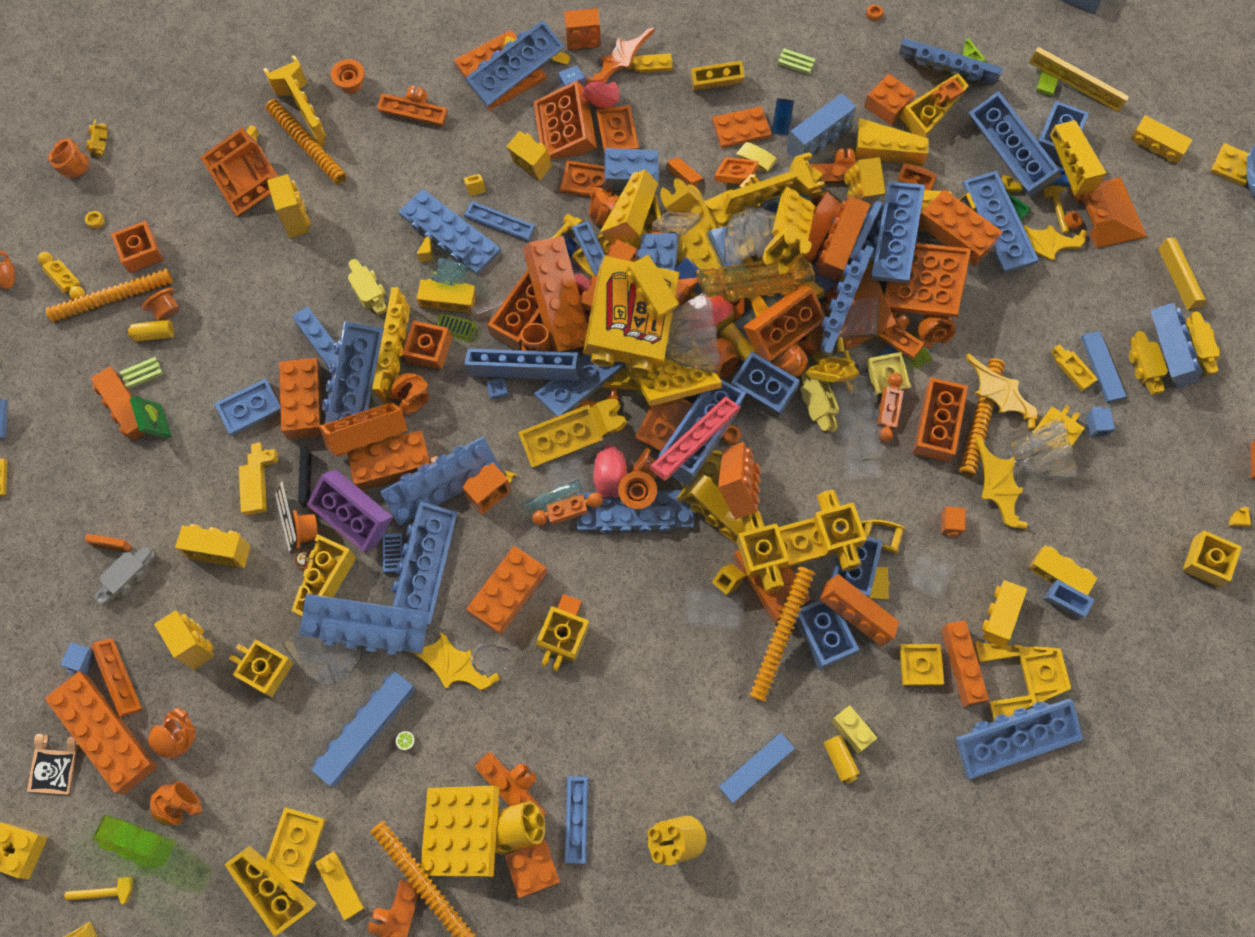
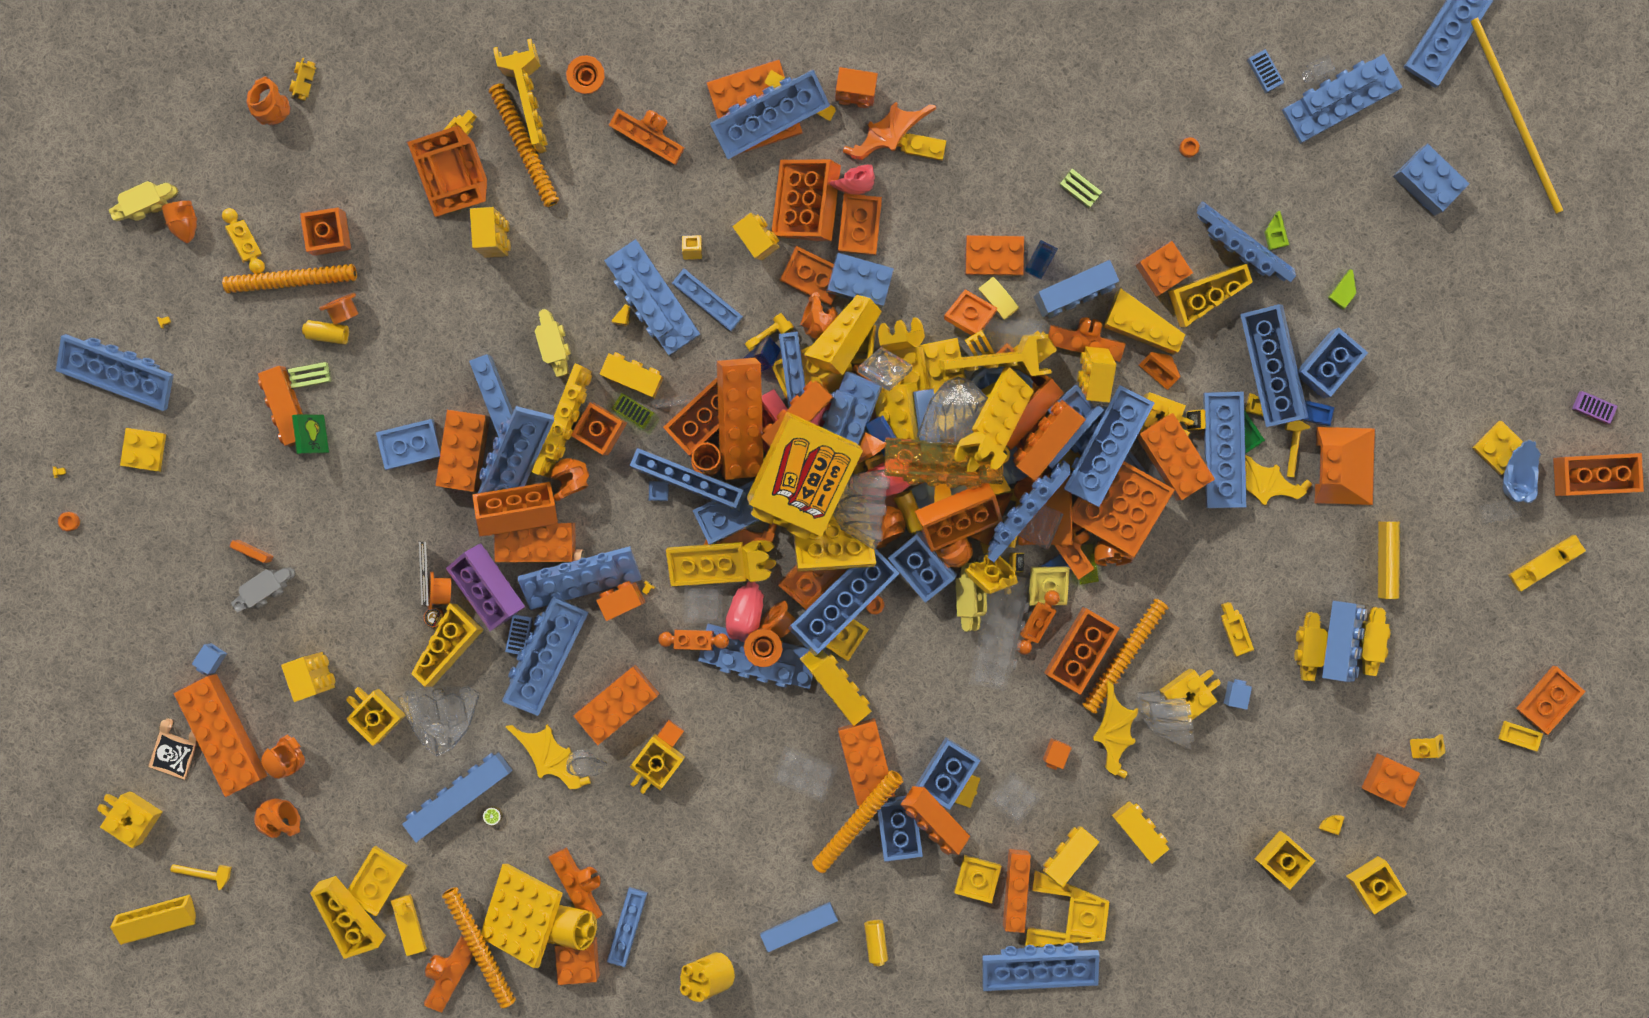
camera: 10 degrees right, 20 degrees up
(94, 219) = (286, 179): yellow tile -> none
(116, 677) = (241, 685): orange plate -> none
(133, 841) = (236, 843): clear neon green brick -> none
(213, 546) = (350, 586): yellow brick -> none
(253, 479) = (400, 524): yellow piece -> none
(305, 466) = (450, 535): black tile -> none
(363, 624) = (475, 707): medium blue plate -> none
(449, 271) = (638, 353): clear light blue cylinder -> none
(561, 492) = (684, 623): clear light blue pin -> none
(571, 75) = (828, 146): medium blue brick -> none
(651, 287) = (827, 465): yellow brick -> none
(683, 172) = (916, 294): orange slope -> none
(695, 438) = (832, 616): coral tile -> none
(717, 75) = (987, 188): yellow brick -> none
(729, 578) = (826, 752): yellow brick -> none
(739, 480) = (862, 669): orange brick -> none
(801, 541) = (901, 744): yellow piece -> none
(853, 729) = (895, 921): light yellow brick -> none
(897, 536) = (973, 736): yellow piece -> none
(948, 91) = (1226, 287): orange plate -> none
(1002, 392) = (1153, 640): yellow animal -> none
(1069, 599) = (1134, 860): medium blue brick -> none
(1073, 220) = (1303, 466): orange tile -> none
(1077, 158) = (1329, 408): yellow wedge -> none
(1078, 79) = (1376, 301): yellow plate -> none
(1103, 367) = (1266, 635): medium blue tile -> none
(1161, 139) = (1435, 399): yellow brick -> none

